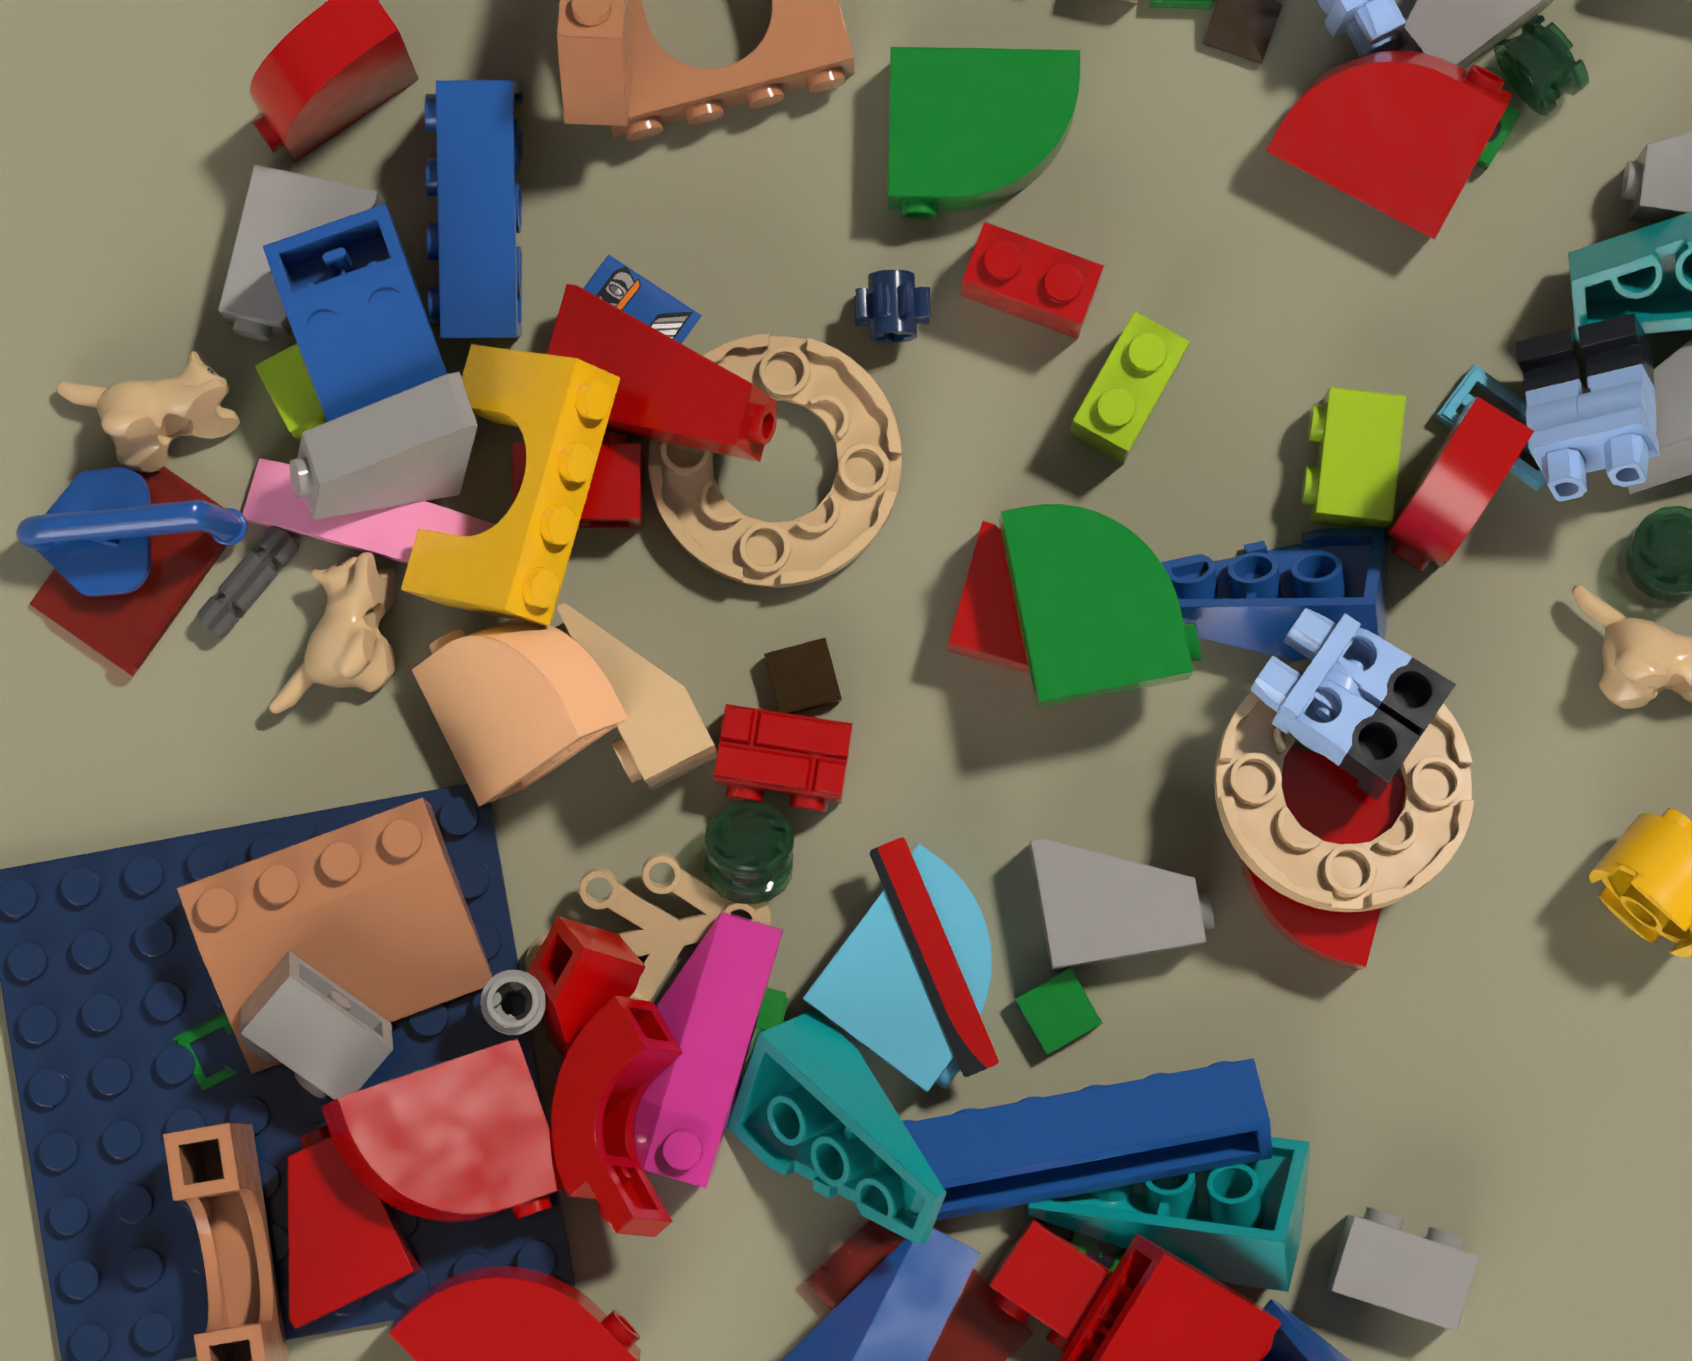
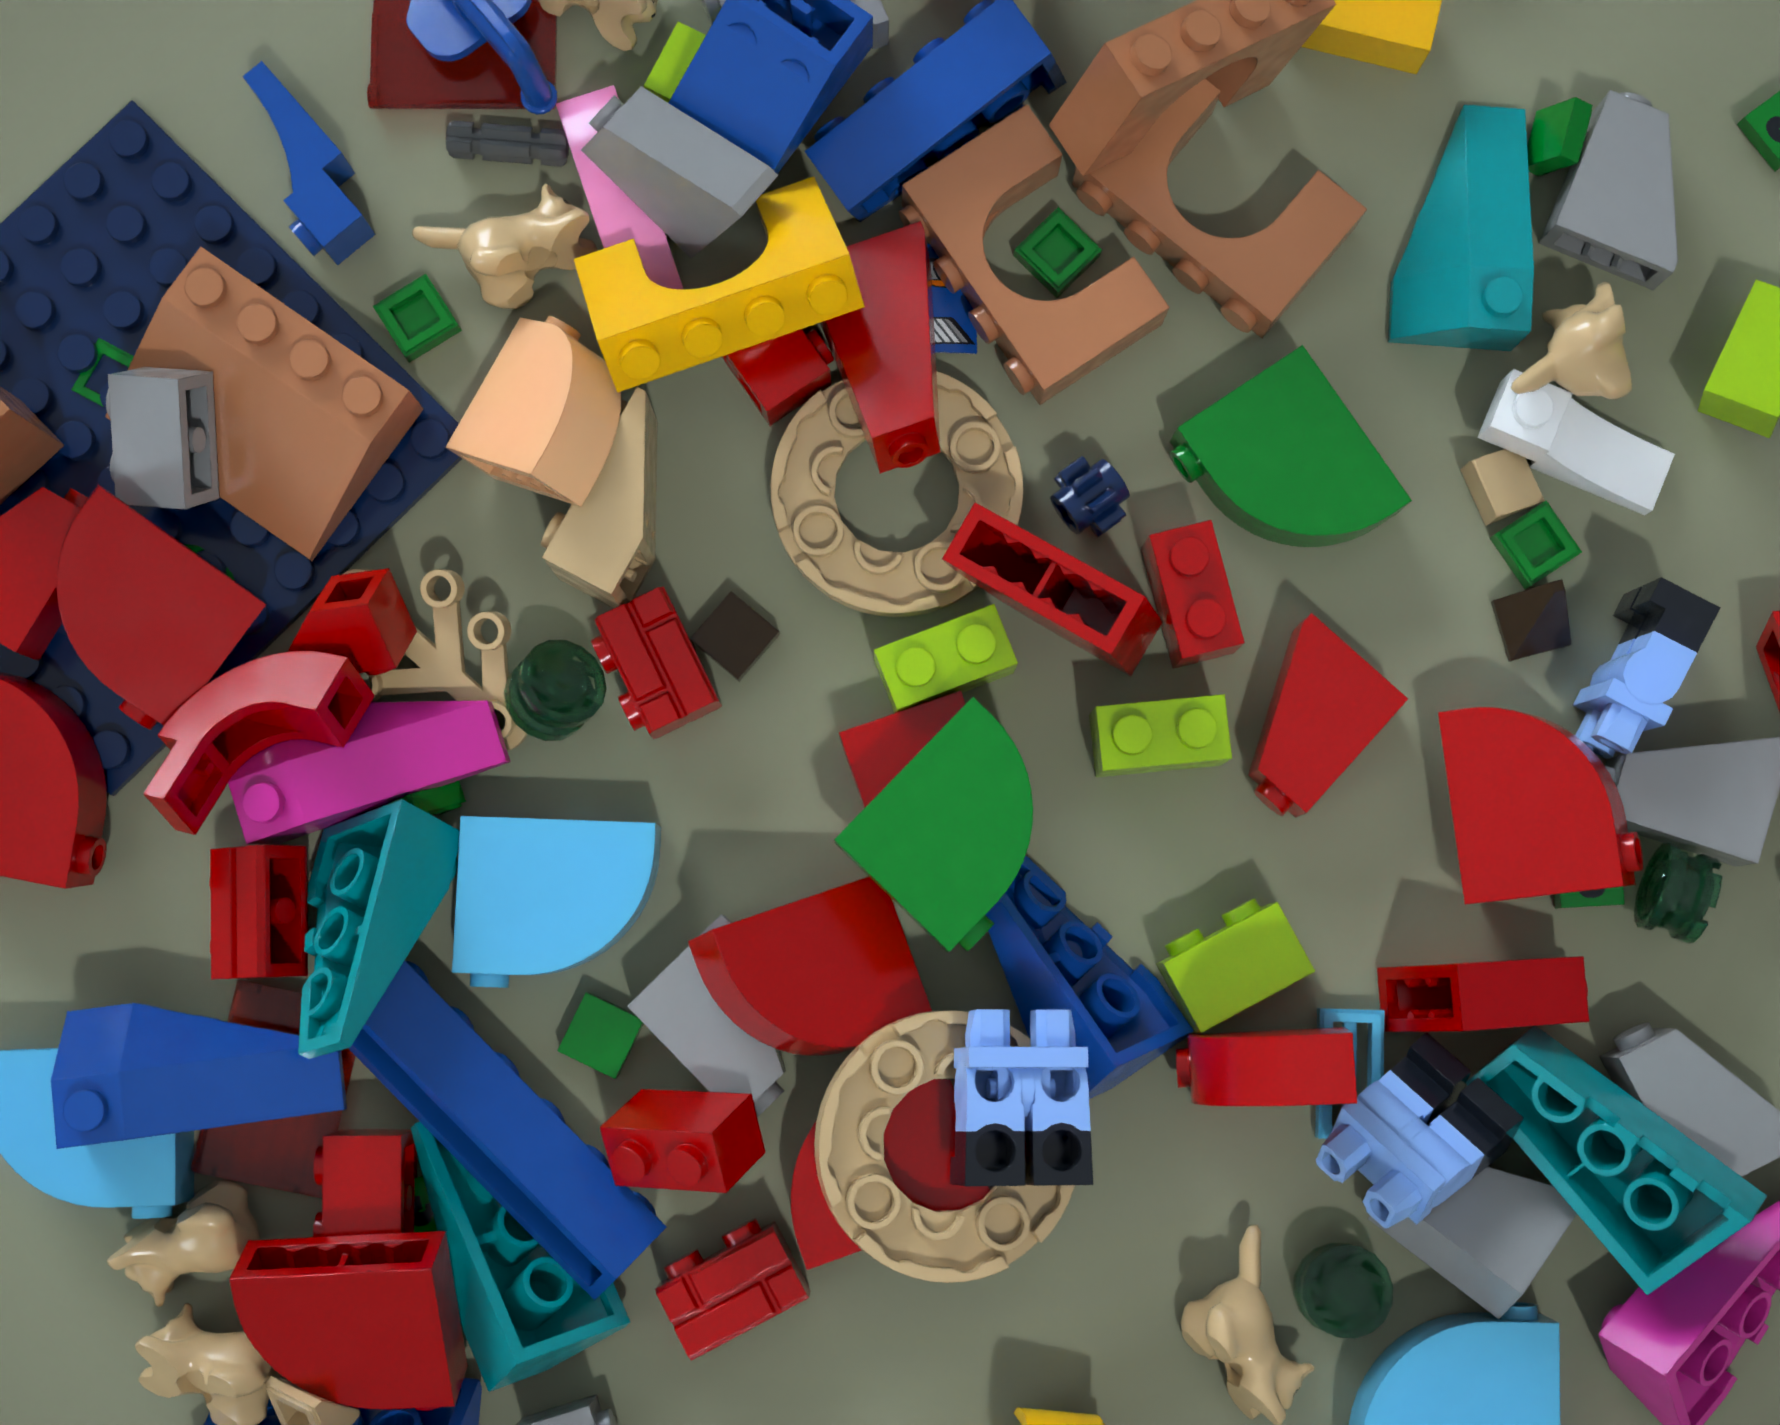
camera: 50 degrees right, 0 degrees up
(200, 772) = (317, 171): none -> blue slope
(345, 758) = (417, 318): none -> green tile
(507, 983) = (279, 573): light grey cone -> none
(665, 190) = (1057, 252): none -> green tile
(733, 256) = (1043, 340): none -> nougat arch
(764, 1221) = (258, 911): none -> red brick
(934, 957) = (567, 901): red sticker -> none
(946, 518) = (946, 659): none -> lime brick
(953, 387) = (1054, 589): none -> red brick
(1130, 795) = (814, 970): none -> red brick
(1194, 994) = (683, 1140): none -> red brick
(1203, 251) = (1318, 718): none -> red slope
(1337, 1041) = (732, 1288): none -> red brick
(1515, 276) = (1483, 994): none -> red slope

